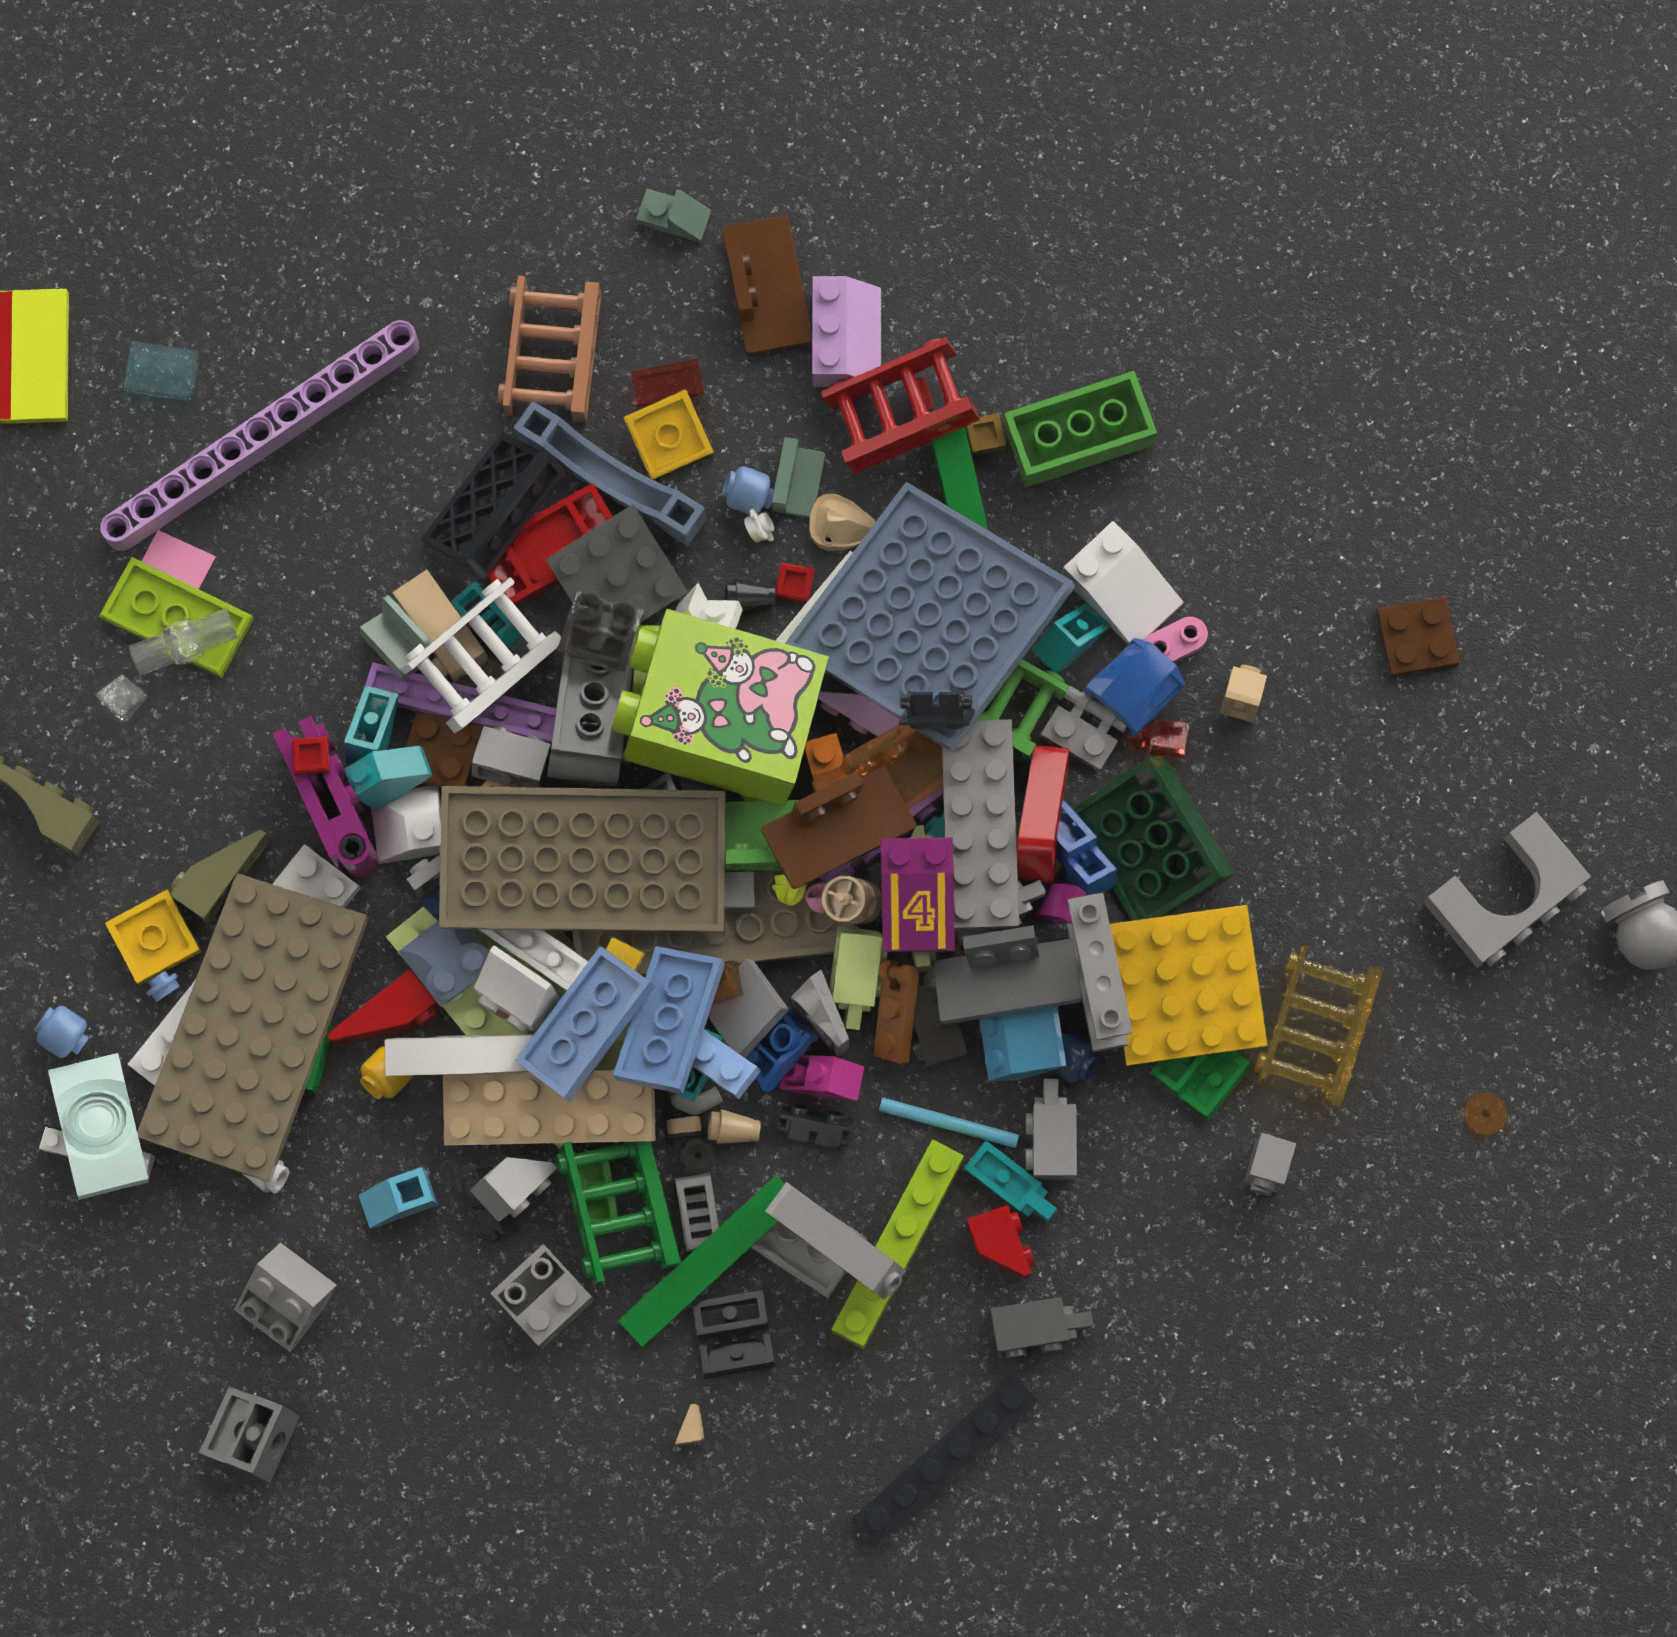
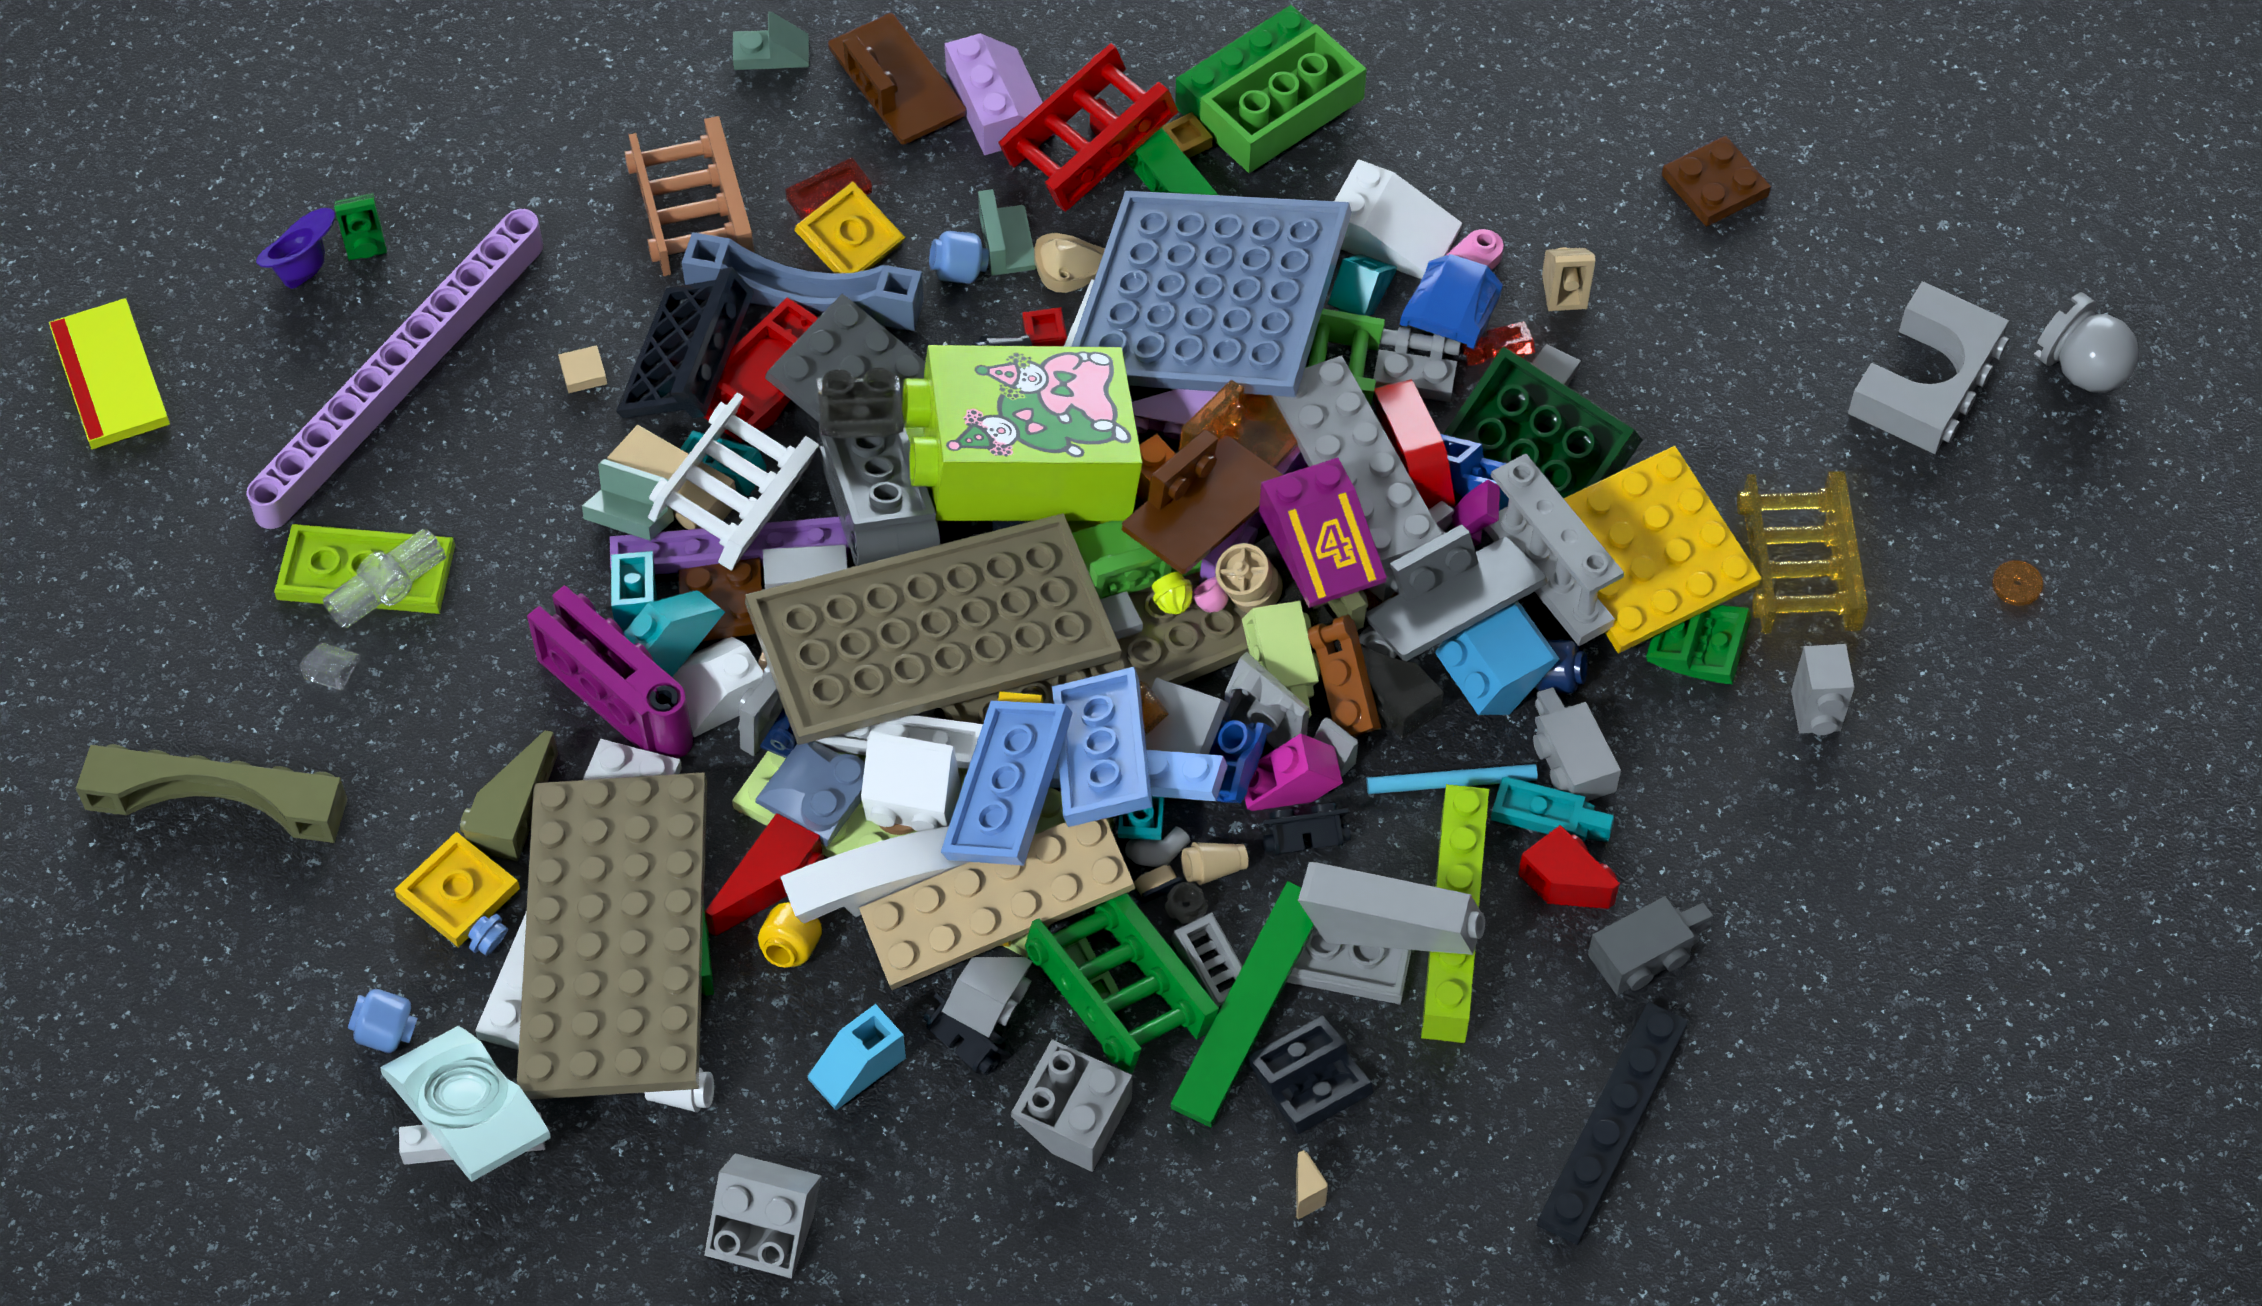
camera: 25 degrees left, 20 degrees down
(161, 371) = (261, 344): clear light blue plate -> none
(178, 559) = (347, 512): bright pink sticker -> none
(216, 291) = (300, 249): none -> dark purple piece
(272, 285) = (360, 226): none -> green slope
(311, 755) = (581, 620): red tile -> none
(407, 488) = (582, 369): none -> tan tile
(759, 526) = (984, 285): white plate -> none
(865, 1057) = (1344, 743): none -> light grey slope
(952, 711) = (1278, 346): black hinge -> none
(1061, 377) = (1237, 57): none -> green arch
(1196, 774) = (1557, 364): none -> light grey tile

